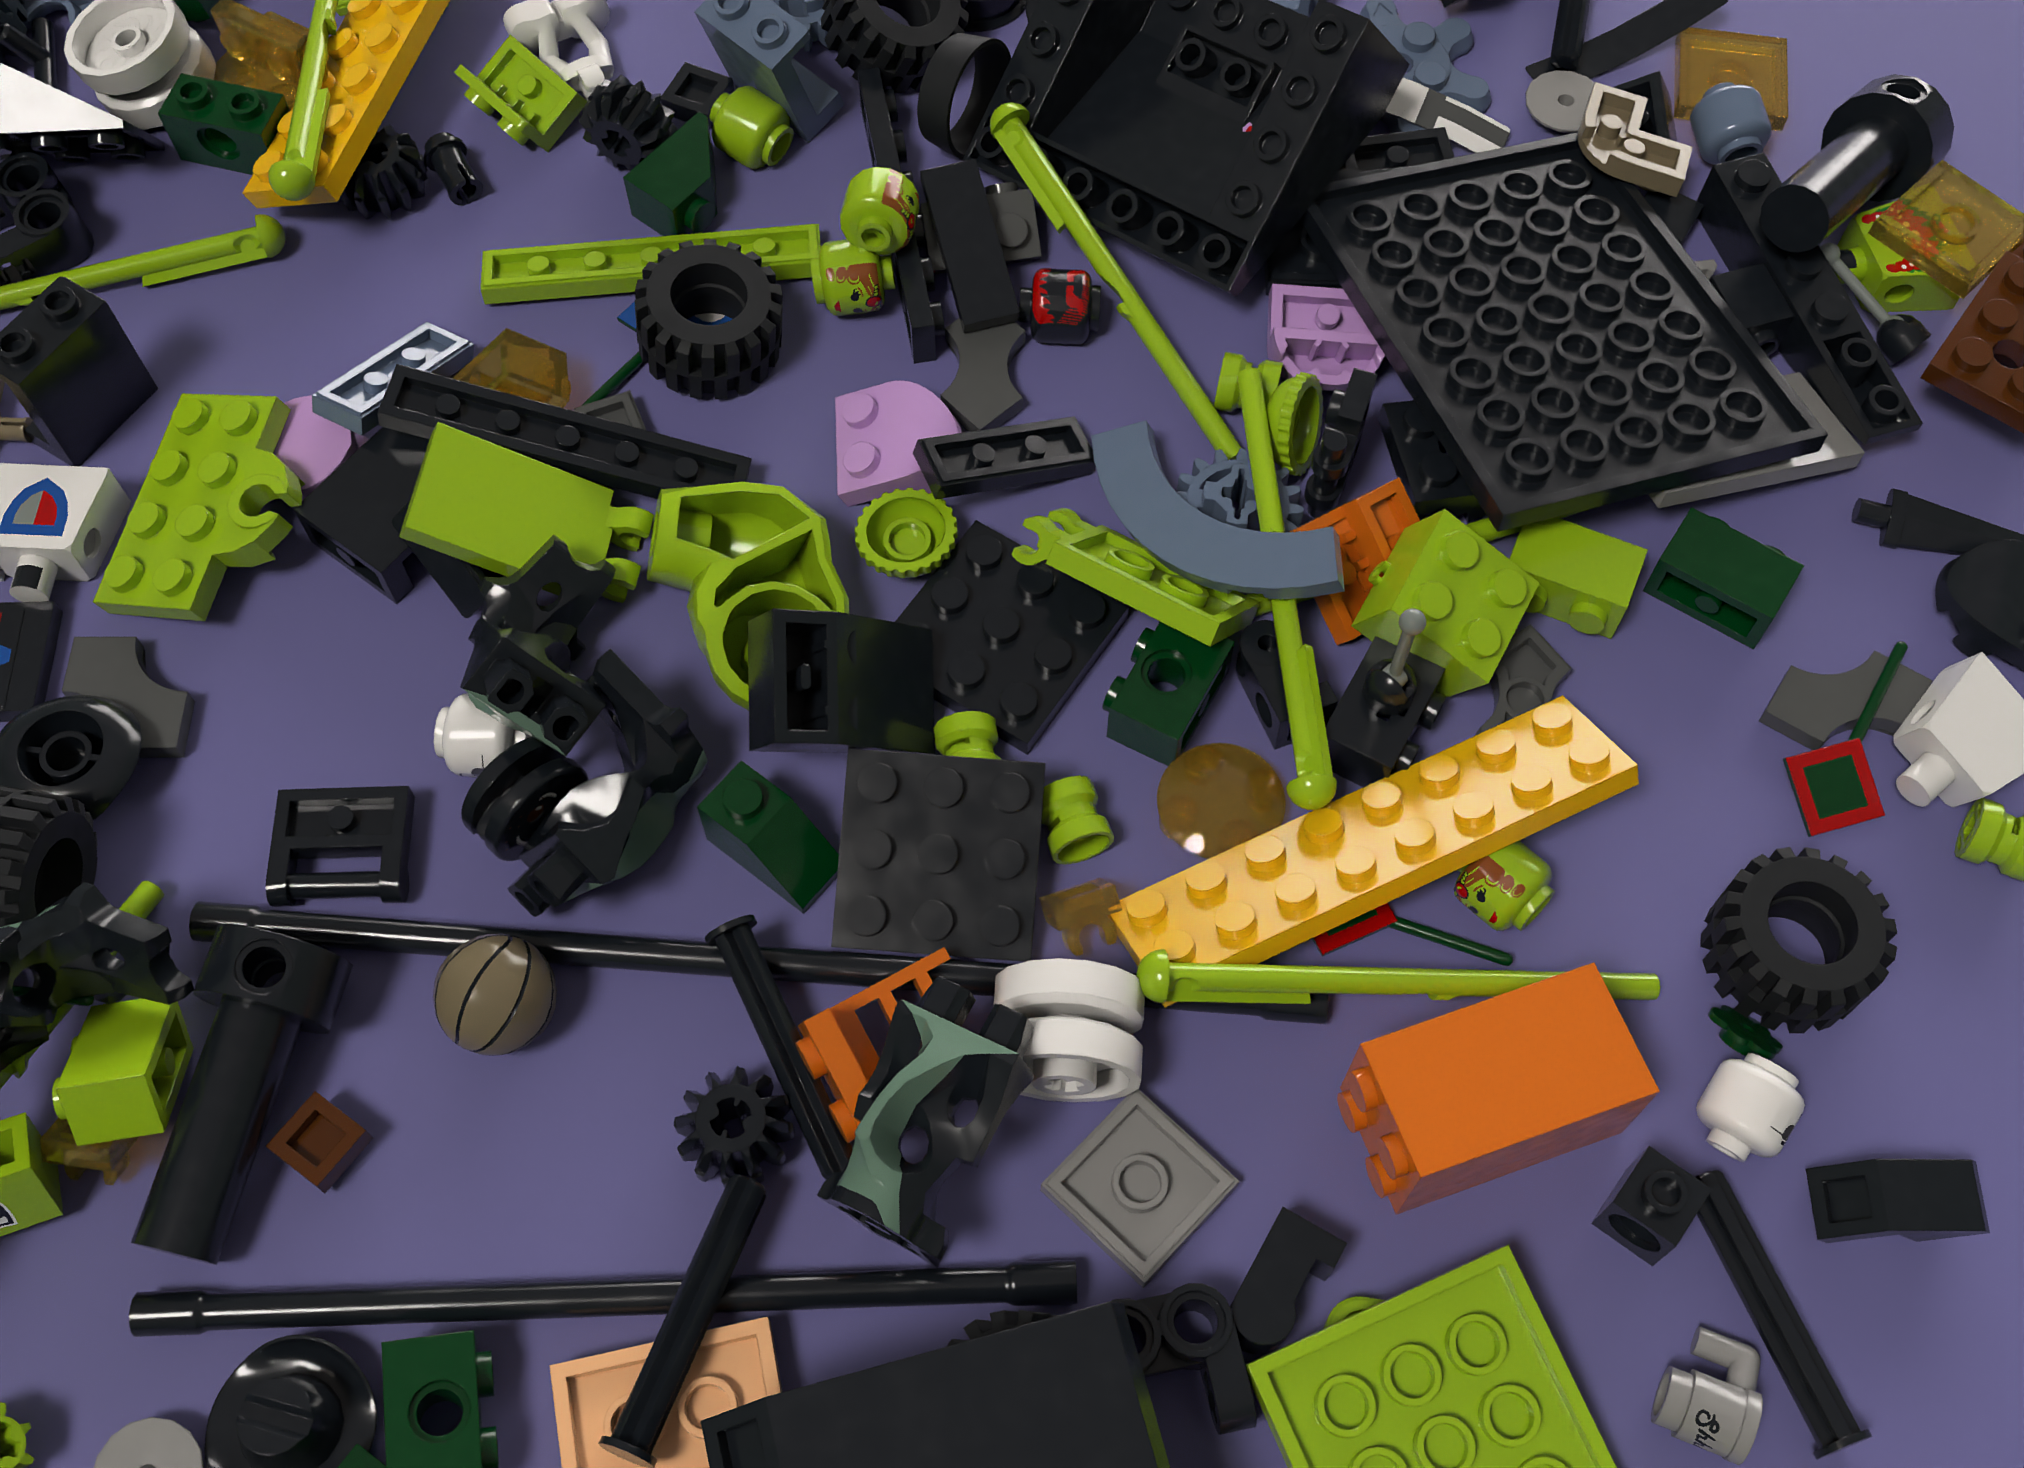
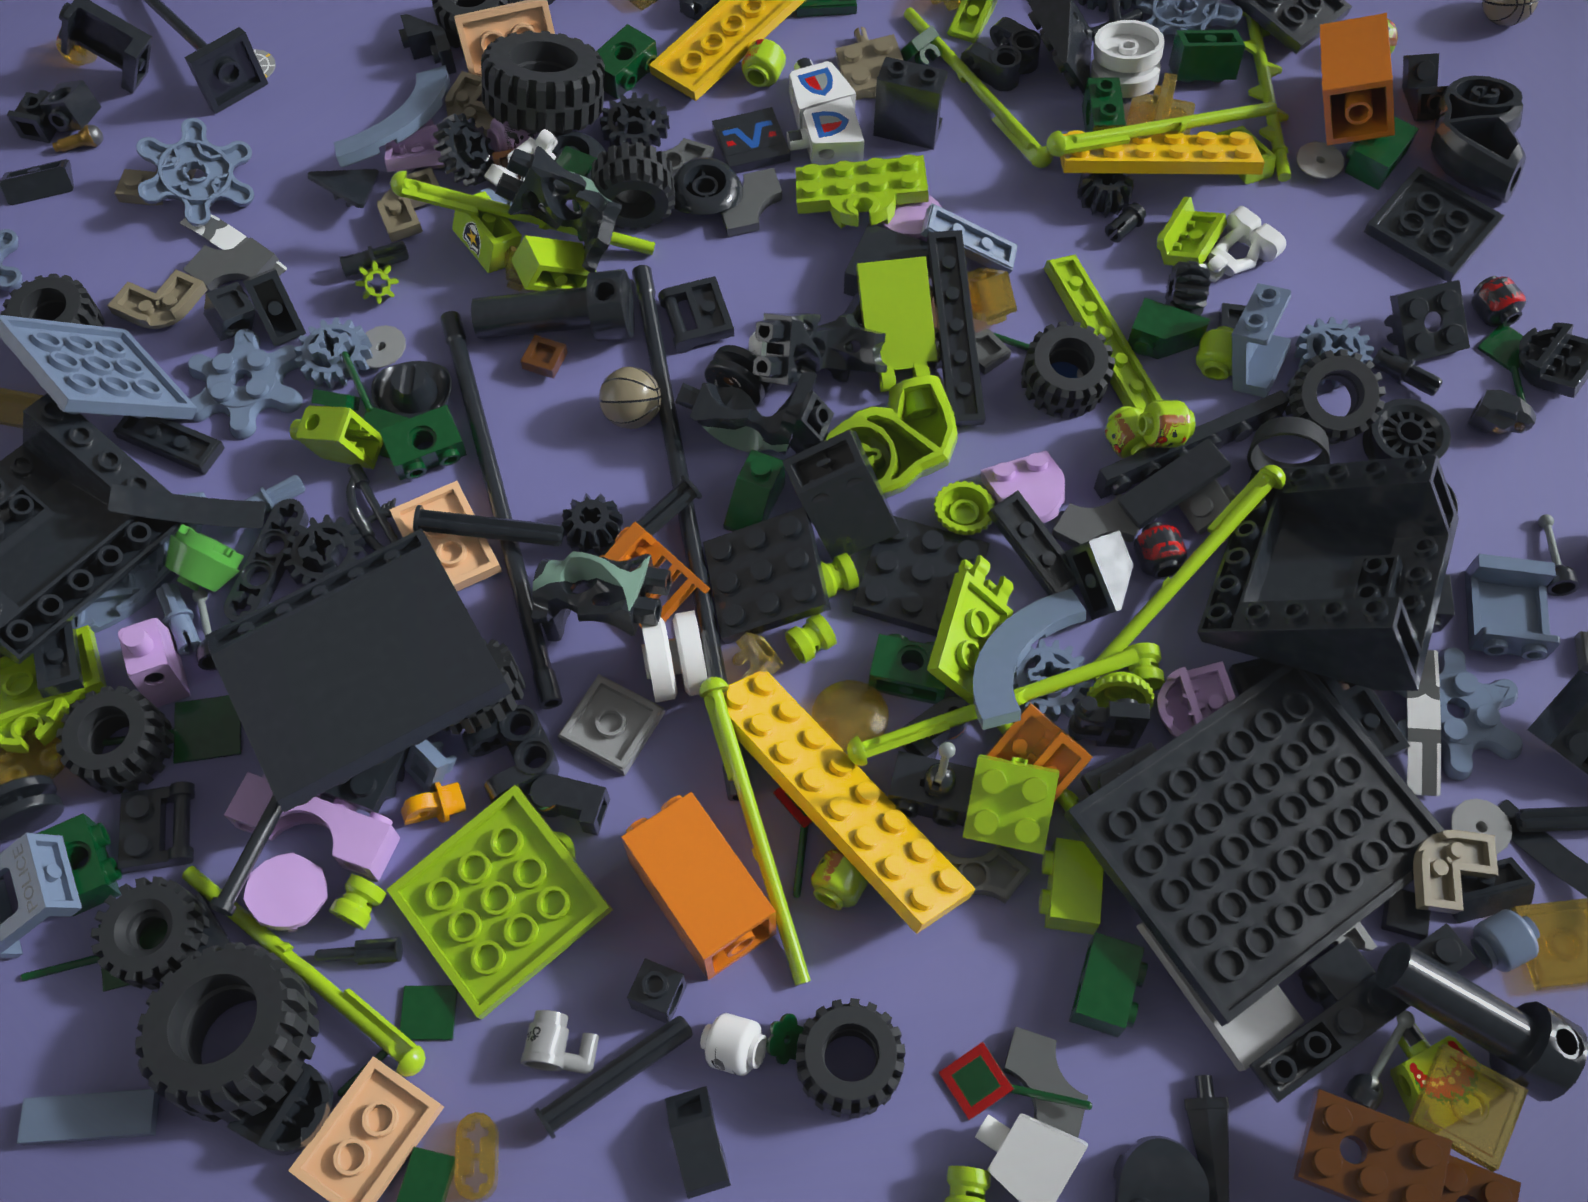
camera: 75 degrees right, 0 degrees up
(692, 684) = (811, 423): none -> black slope
(1083, 383) = (1102, 573): none -> slope

